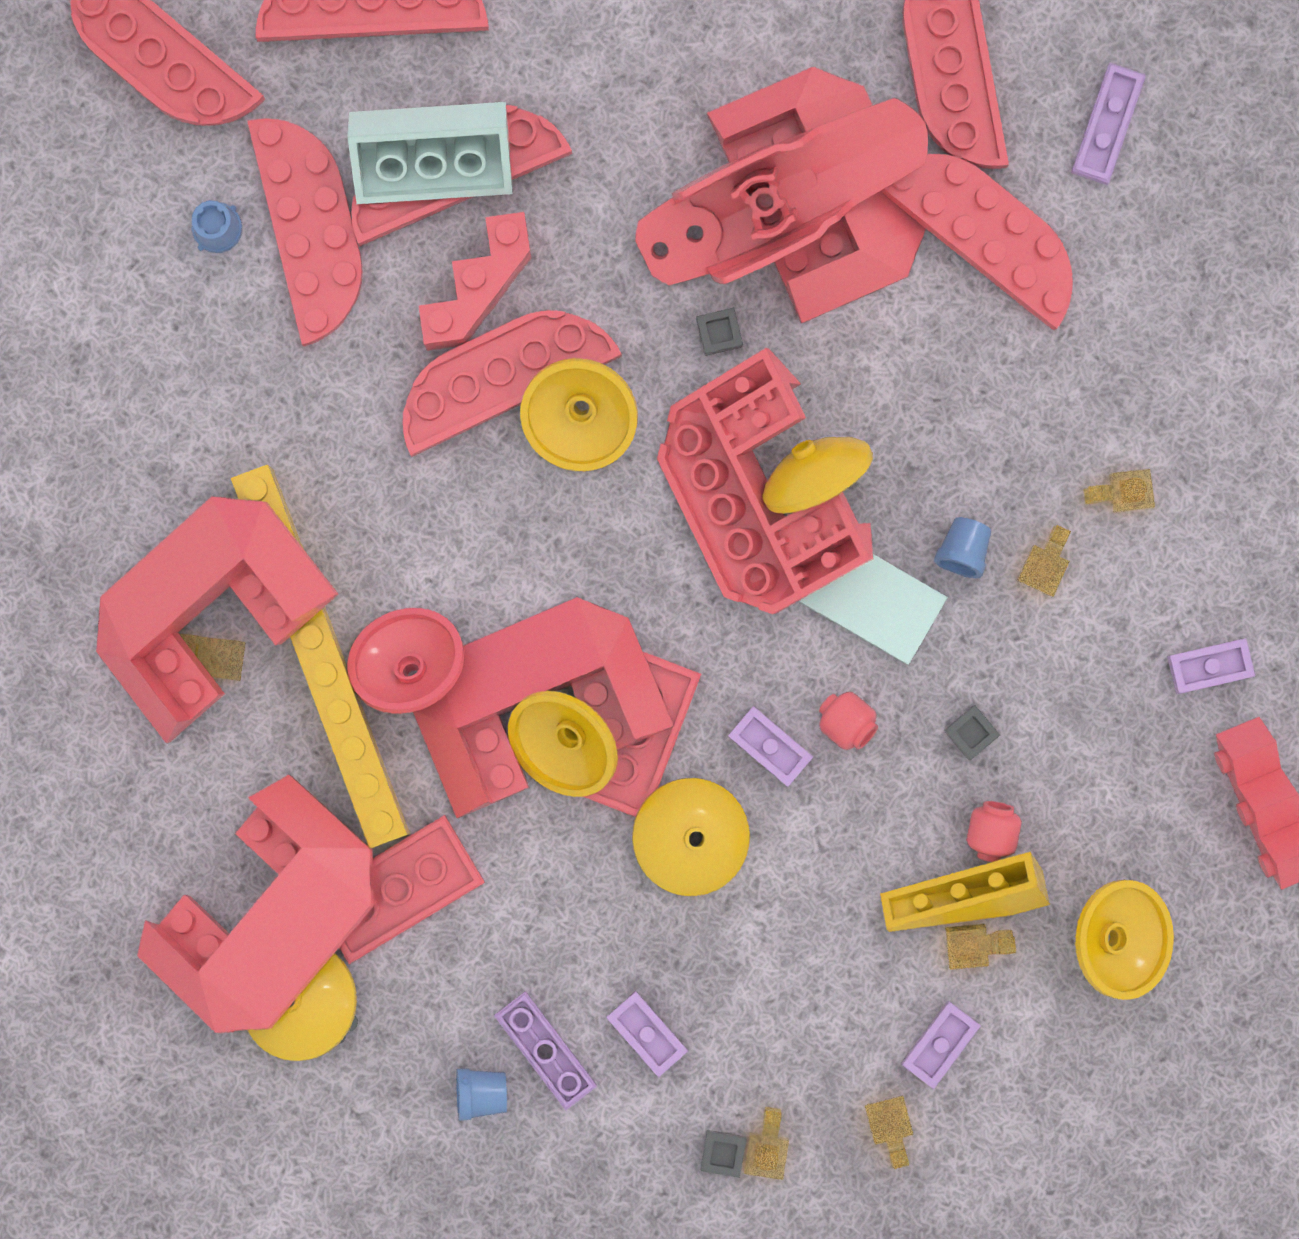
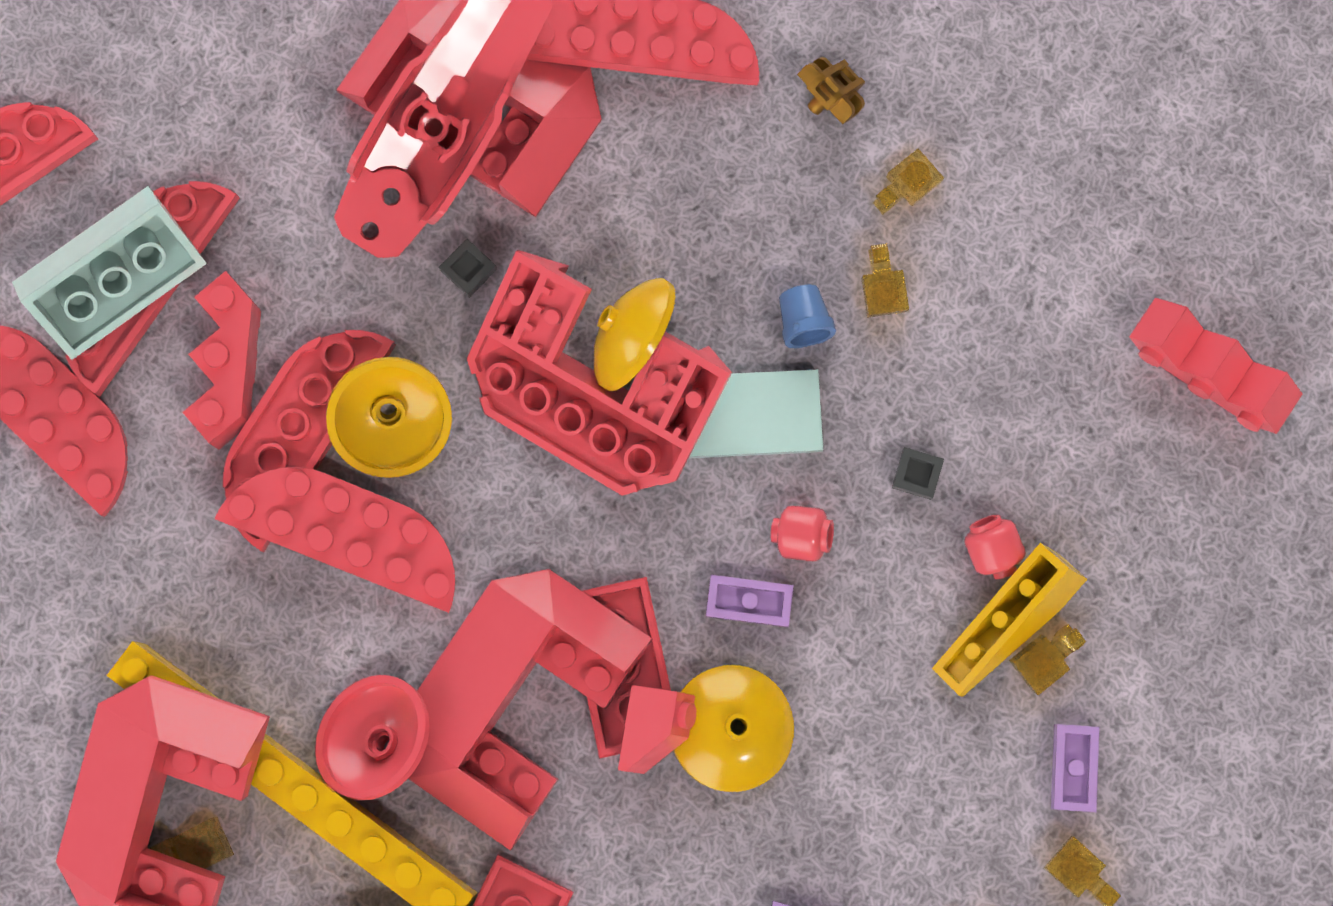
camera: 30 degrees left, 5 degrees down
(487, 483) = (346, 530): none -> coral plate
(562, 743) = (562, 719): yellow dish -> none
(631, 796) = (654, 726): none -> coral slope
(1107, 375) = (833, 88): none -> pearl gold piece
(1138, 941) = (1173, 567): yellow dish -> none
(1211, 666) = (1084, 282): lavender plate -> none

